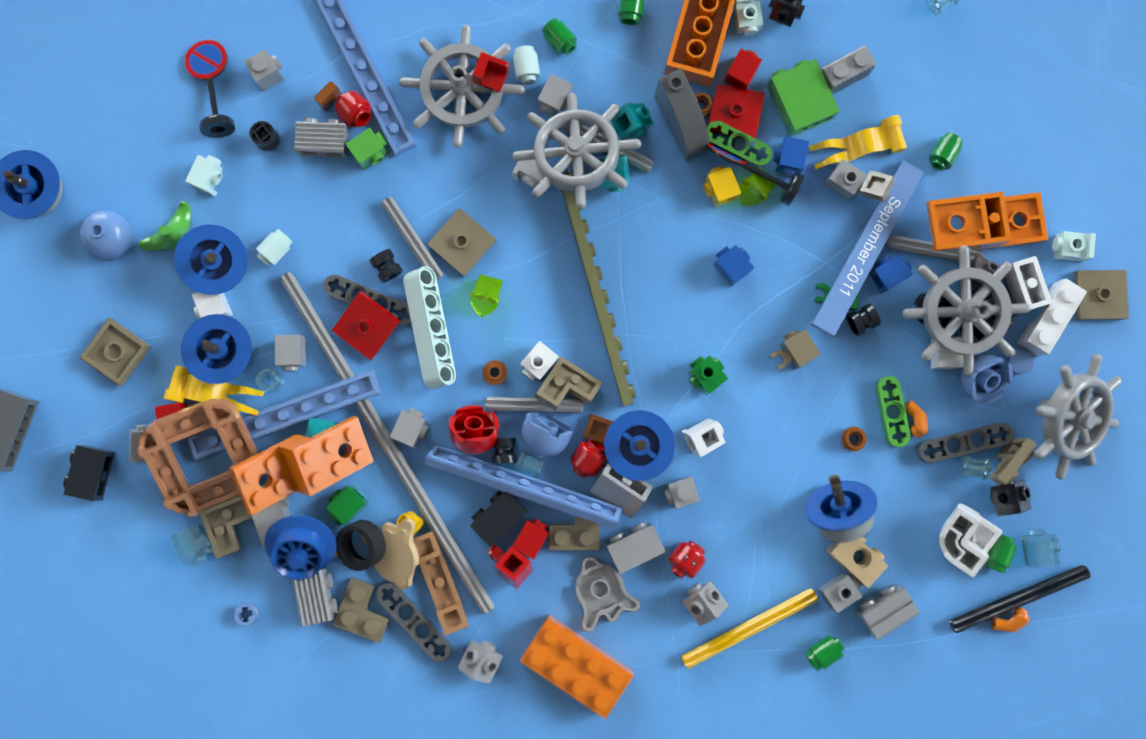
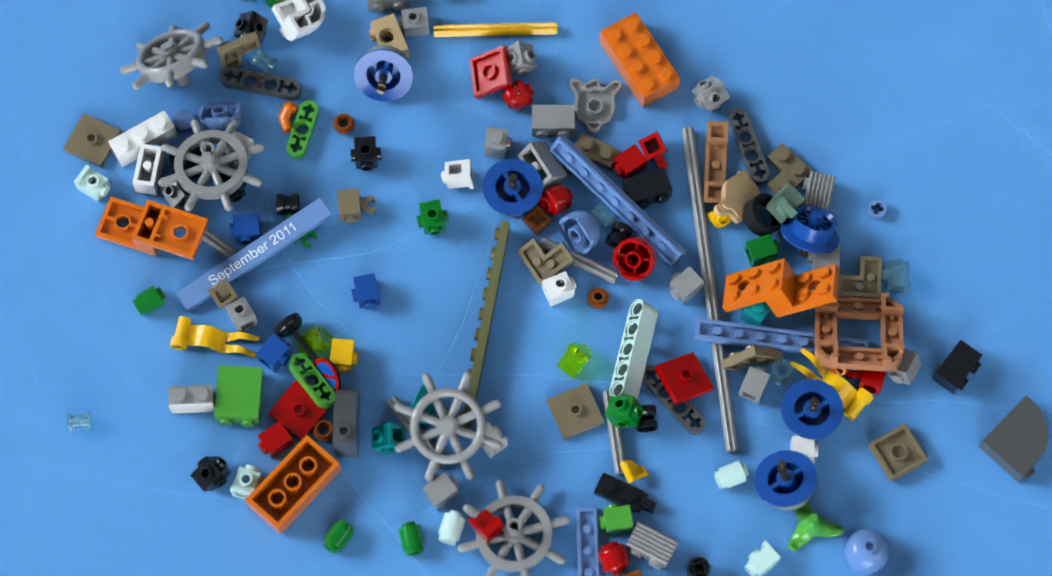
camera: 150 degrees left, 15 degrees down
(303, 376) = (751, 355): none -> dark tan plate
(340, 563) = (785, 203): none -> sand green brick
(373, 205) = (633, 471): none -> yellow tile
(374, 180) = (623, 494): none -> black hinge
(406, 254) = (624, 411): none -> green brick
(728, 571) = (490, 72): none -> plate
(821, 414) = (365, 153): none -> black brick

